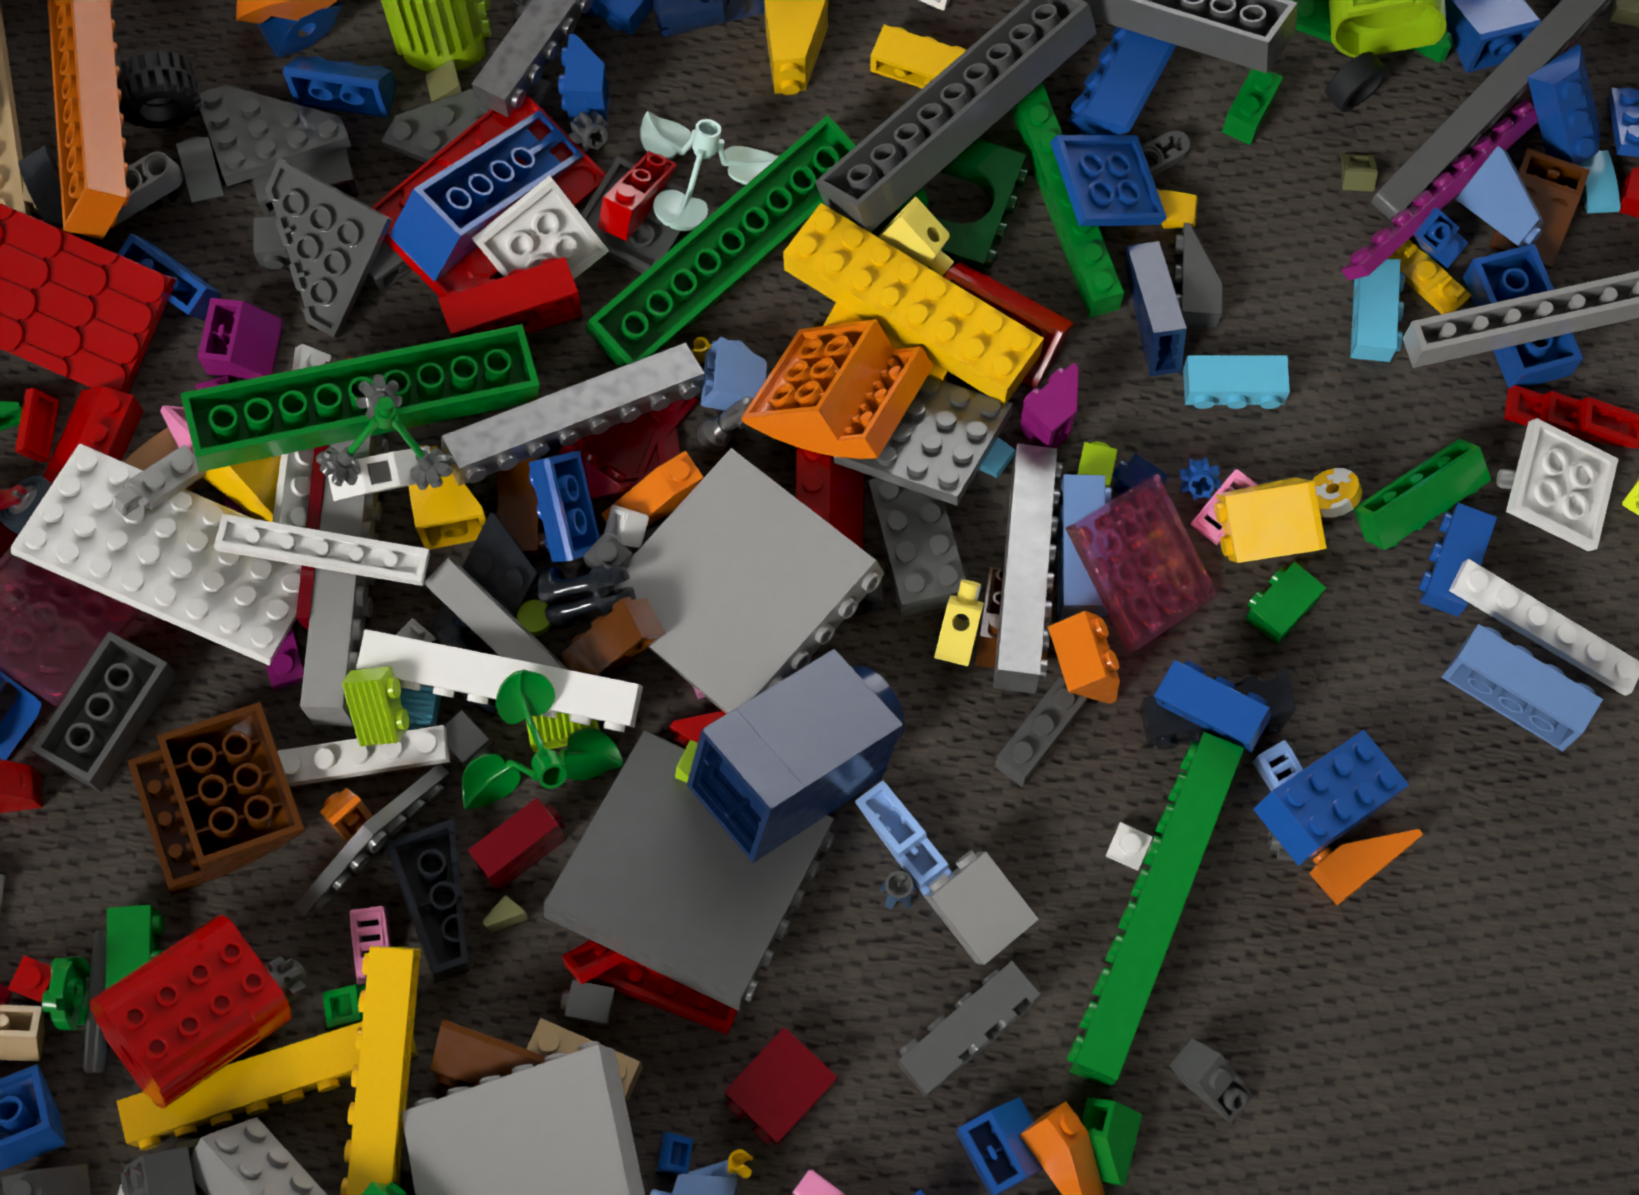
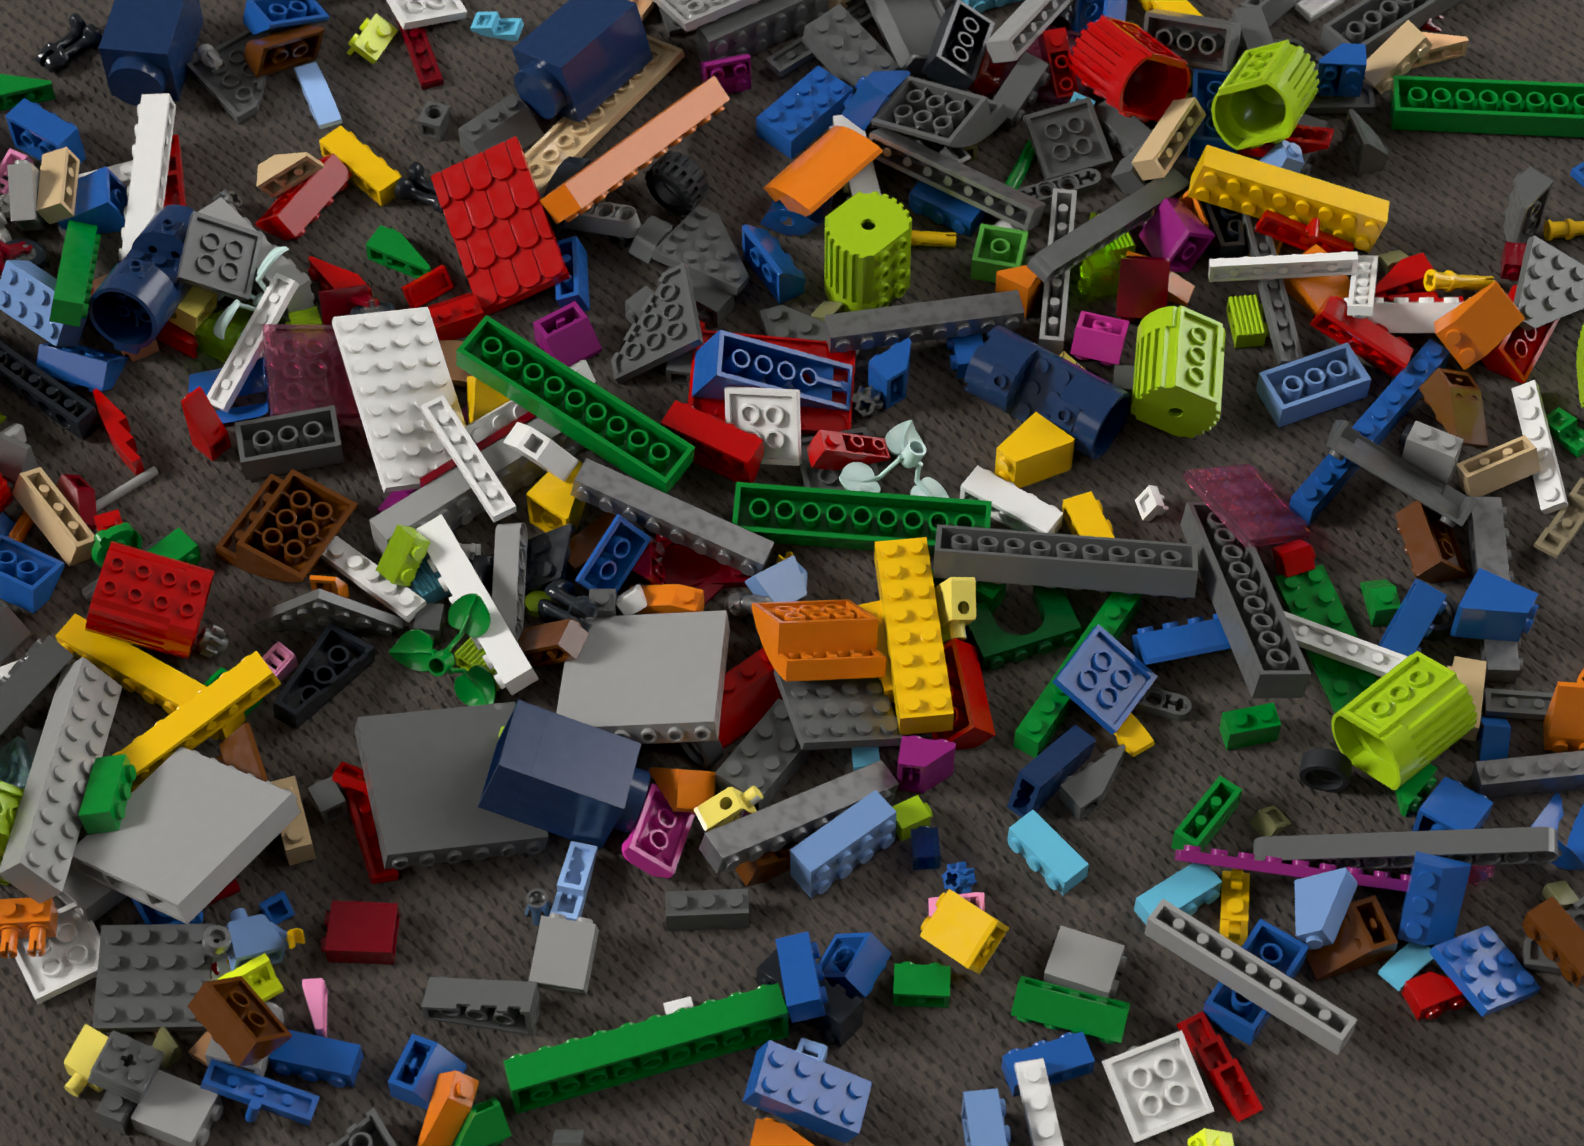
camera: 50 degrees right, 15 degrees down
(159, 481) = (434, 358): light grey hinge -> none
(381, 410) = (559, 407): dark grey plant -> none
(504, 915) = (342, 718): olive slope -> none
(518, 843) = (387, 689): dark red brick -> none
(843, 98) = (1010, 504): none -> white brick
(888, 644) = (684, 788): none -> orange slope
(932, 719) = (657, 836): none -> dark pink slope
(1086, 657) = (768, 889): orange slope -> none
(1141, 562) = (861, 874): clear pink plate -> none
(1212, 641) = (854, 962): none -> blue slope
(1320, 218) = (1208, 815): none -> green brick
(1337, 492) = (1023, 960): piece -> none
(1382, 444) = (1085, 963): none -> light grey brick
(1440, 238) = (1260, 890): blue slope -> none

